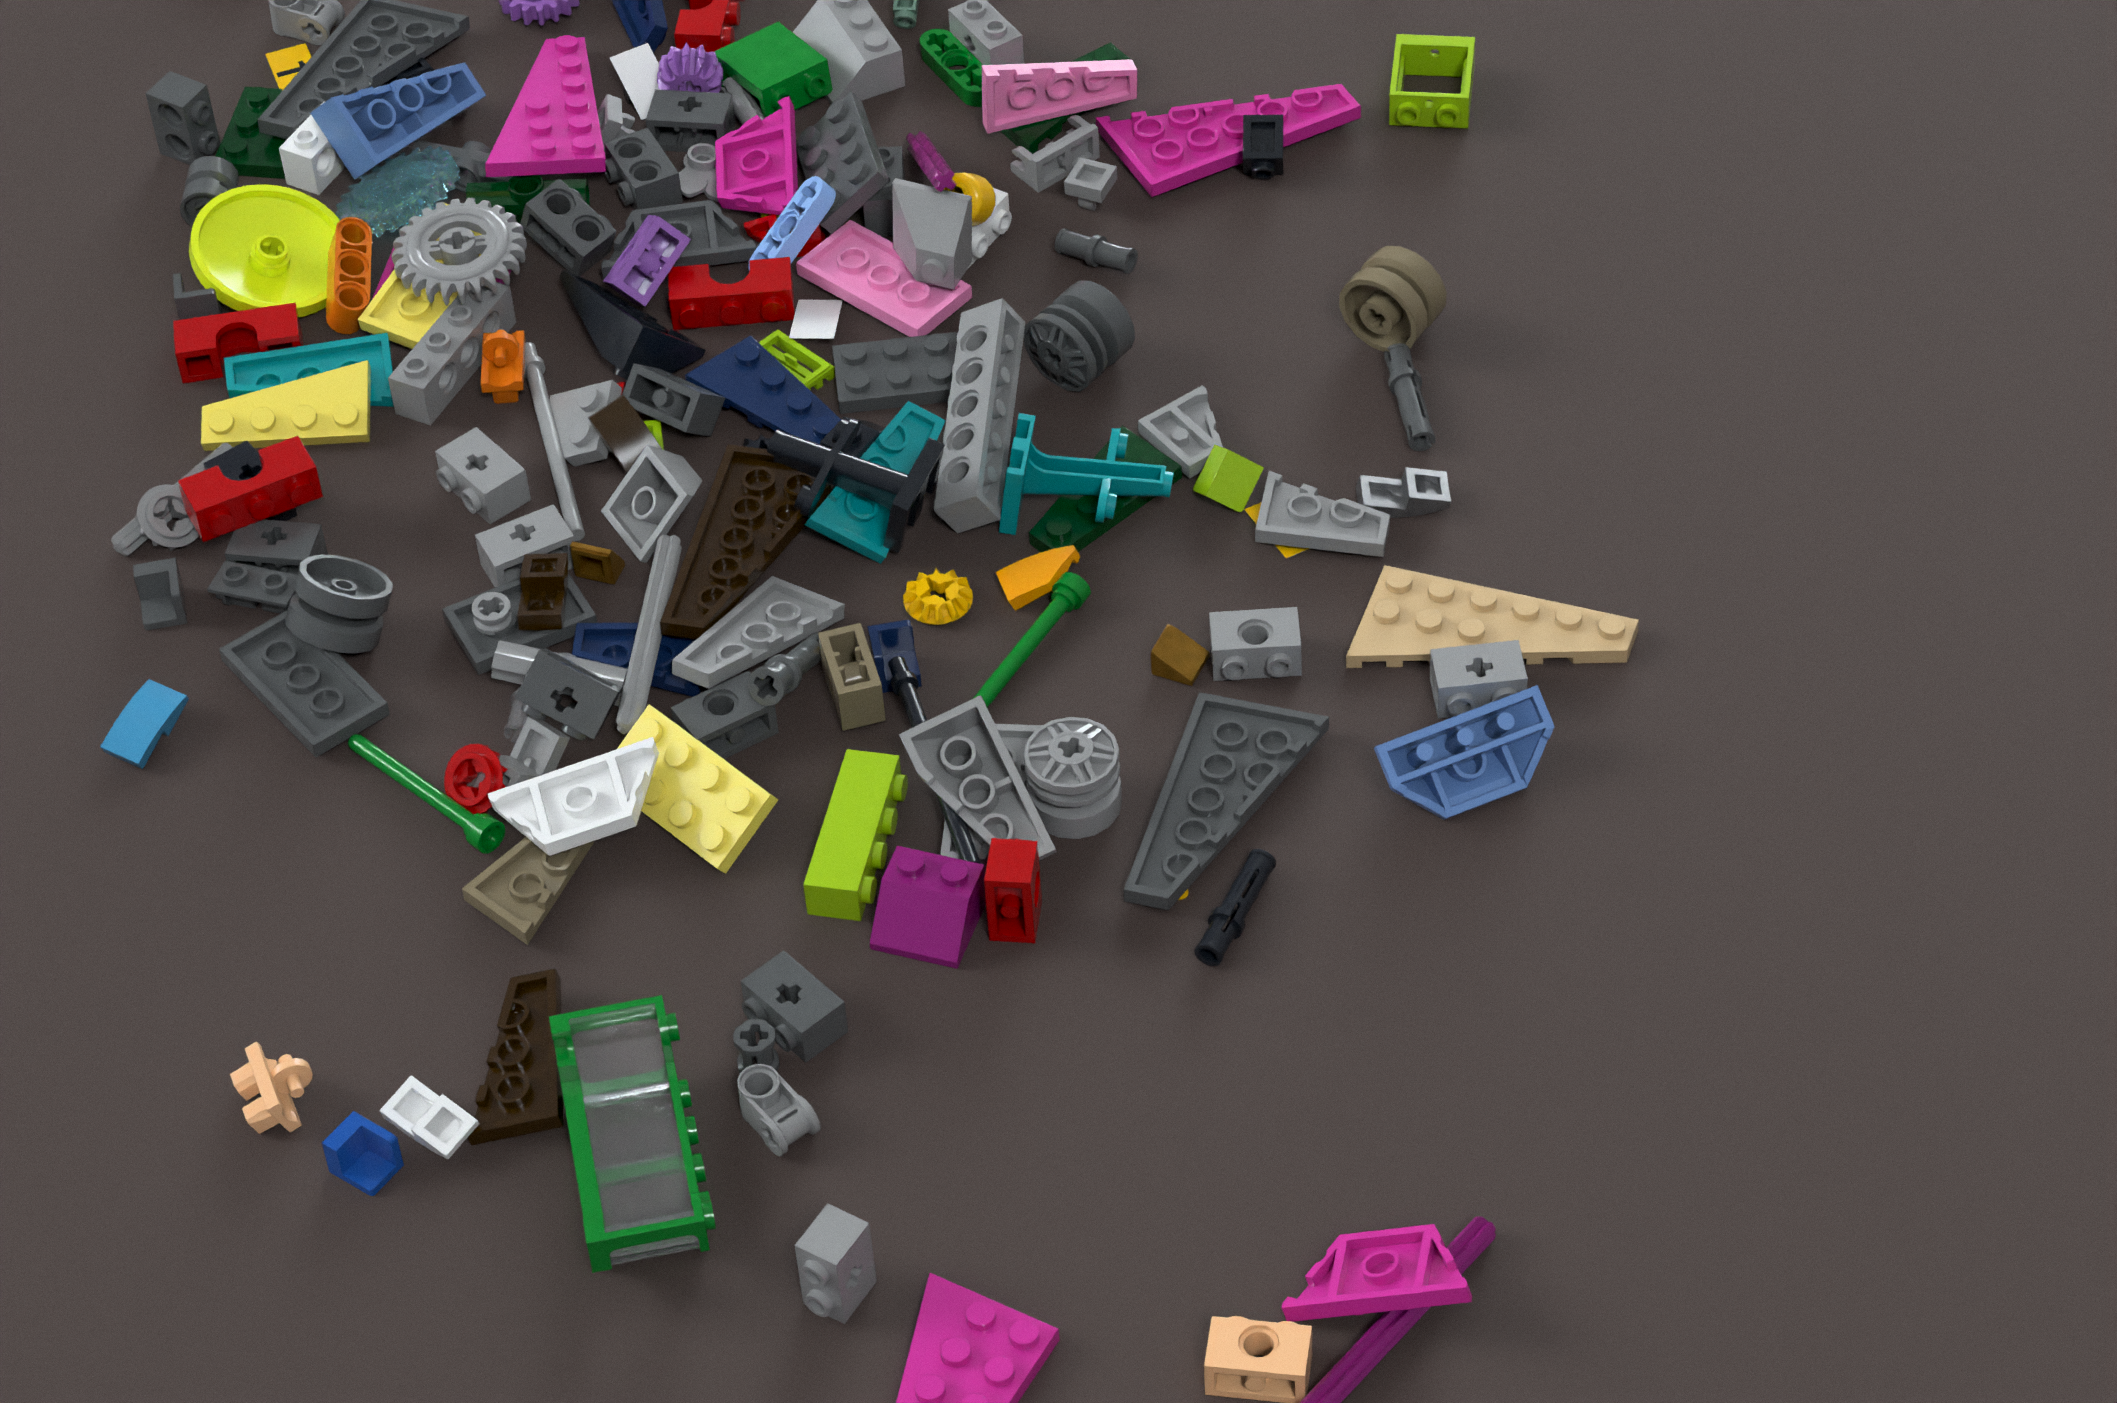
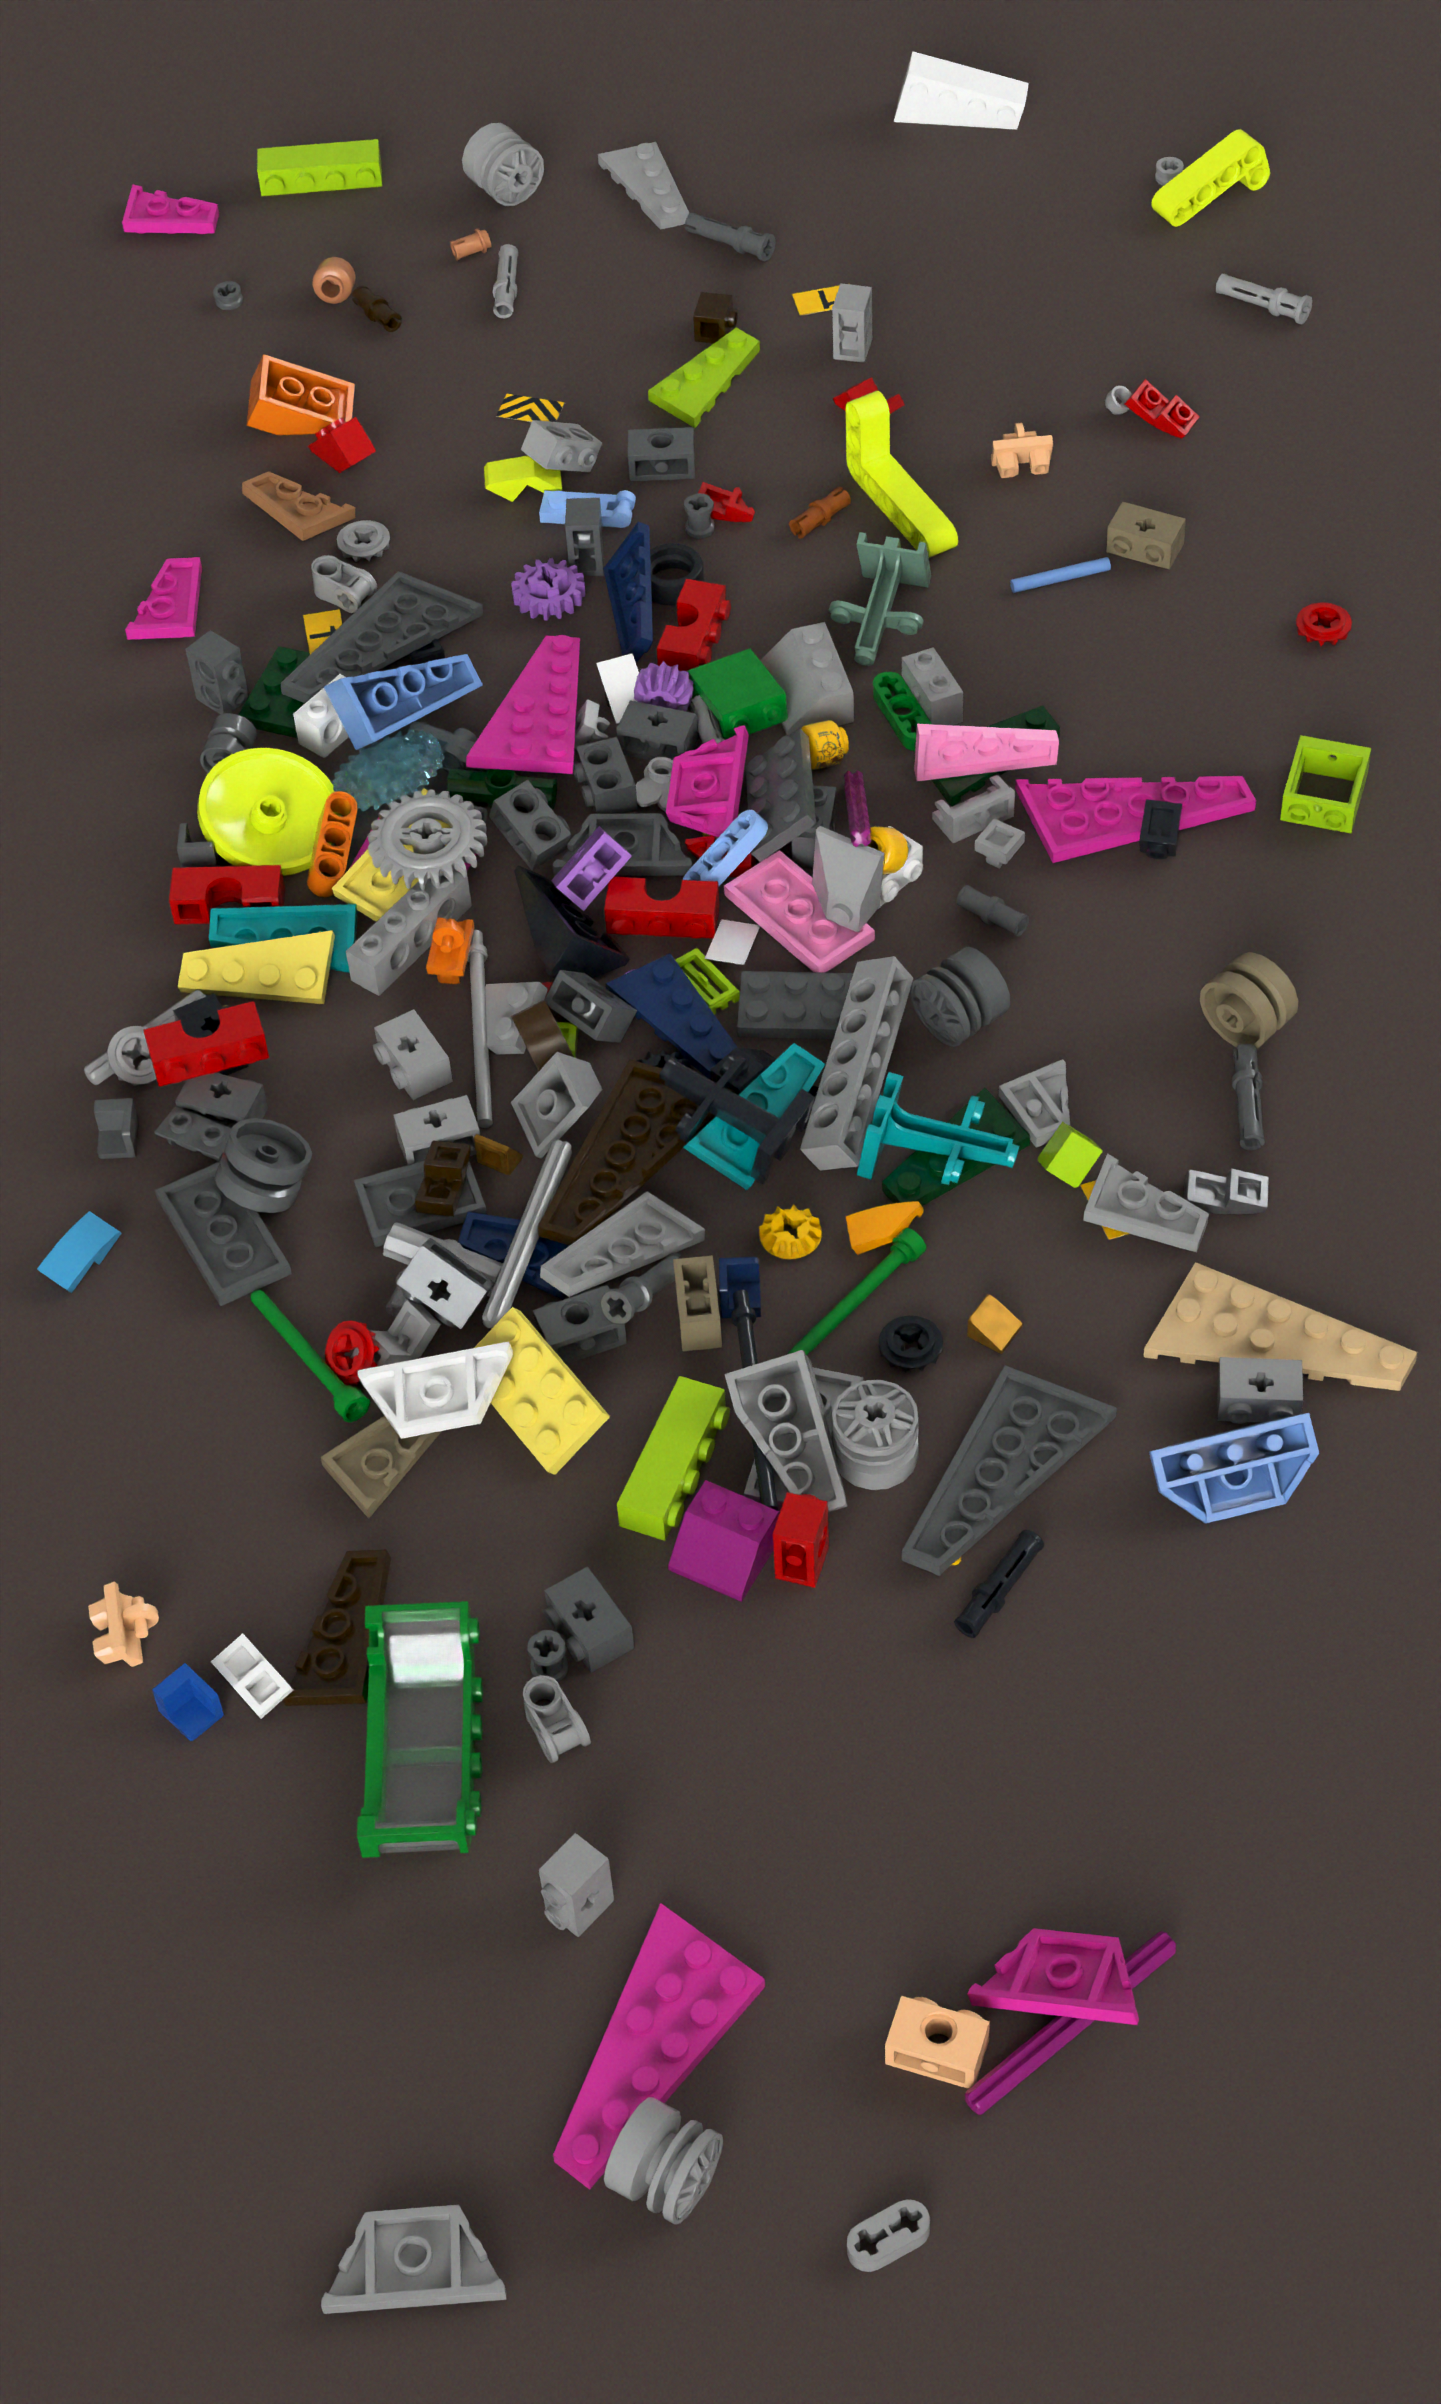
camera: 10 degrees right, 5 degrees up
(112, 59) = (171, 604): none -> dark pink wing
(494, 621) = (394, 1182): light grey bush -> none
(882, 106) = (826, 743): none -> yellow head
(1087, 675) = (910, 1329): none -> black gear
(1255, 643) = (1051, 1311): light grey brick -> none

